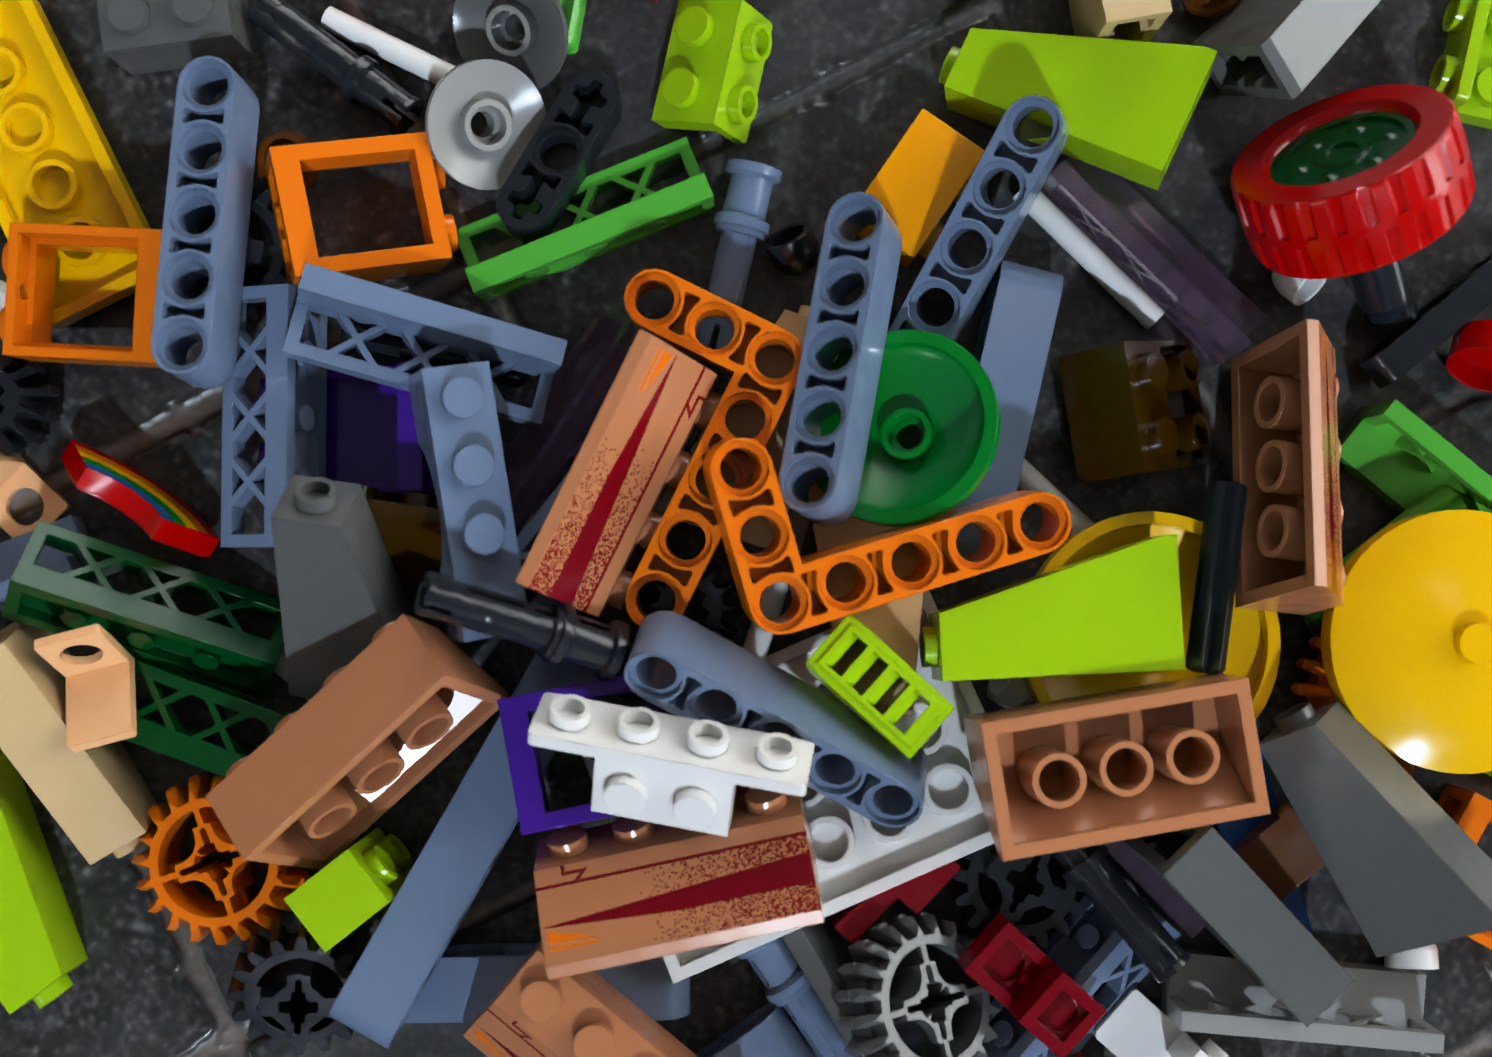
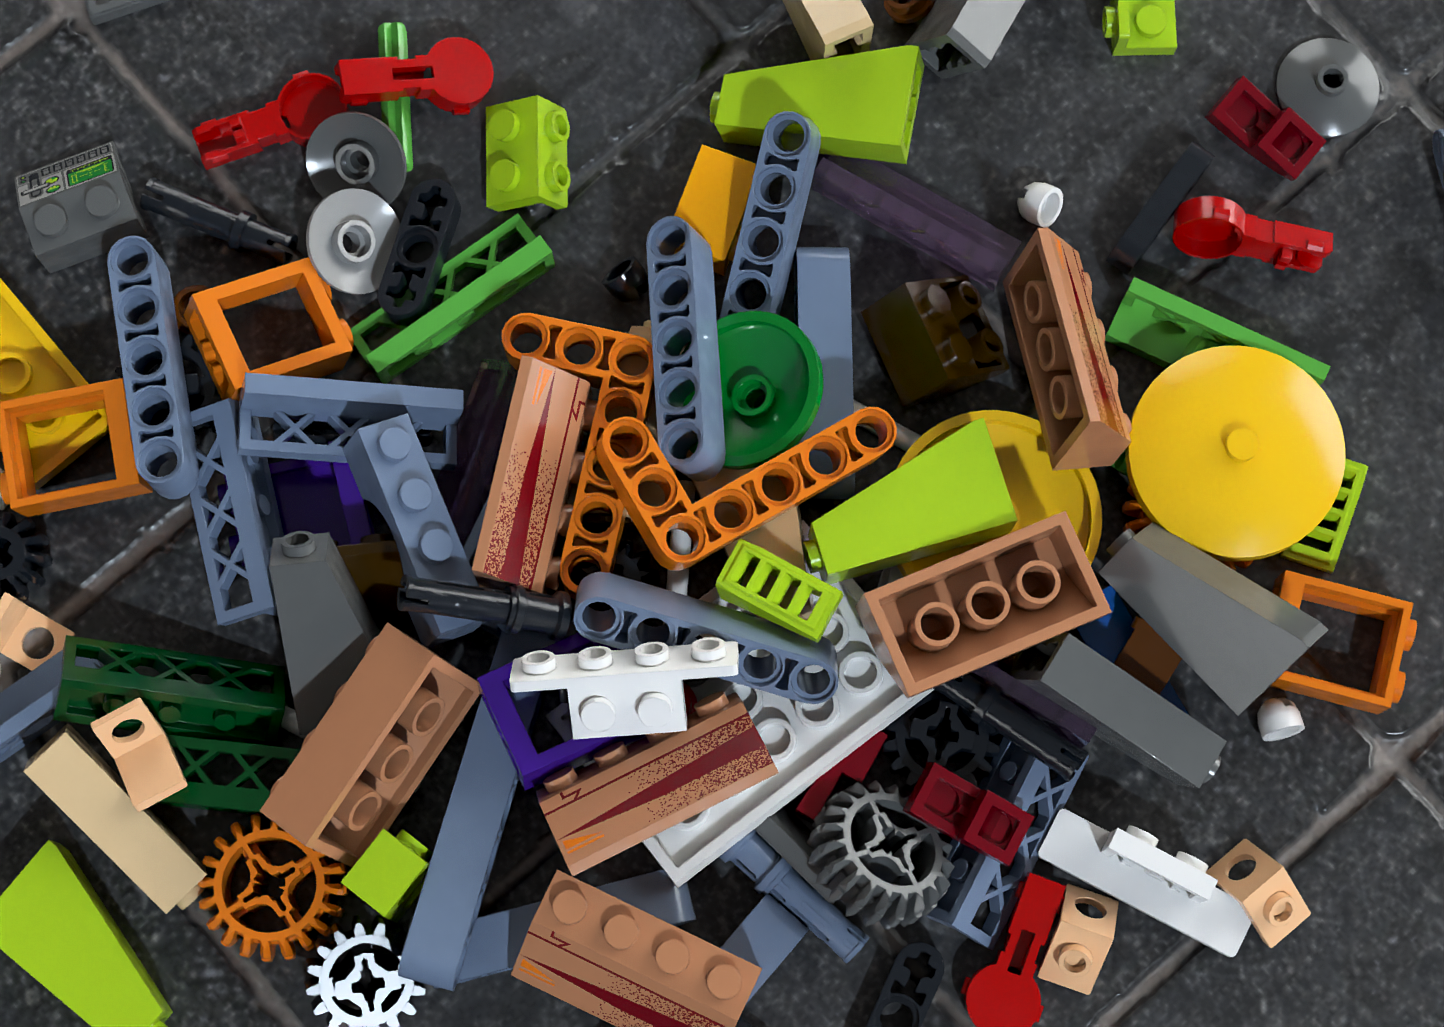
camera: 20 degrees left, 10 degrees down
(140, 498) = (137, 608): tile -> none
(384, 45) = (257, 201): white bar -> none
(741, 227) = (580, 273): sand blue pin -> none
(1095, 261) = (872, 231): white bar -> none
(1216, 577) = (1030, 447): black axle -> none
(1356, 191) = (1053, 125): red wheel -> none
(1376, 1011) = (1244, 774): light grey fence -> none

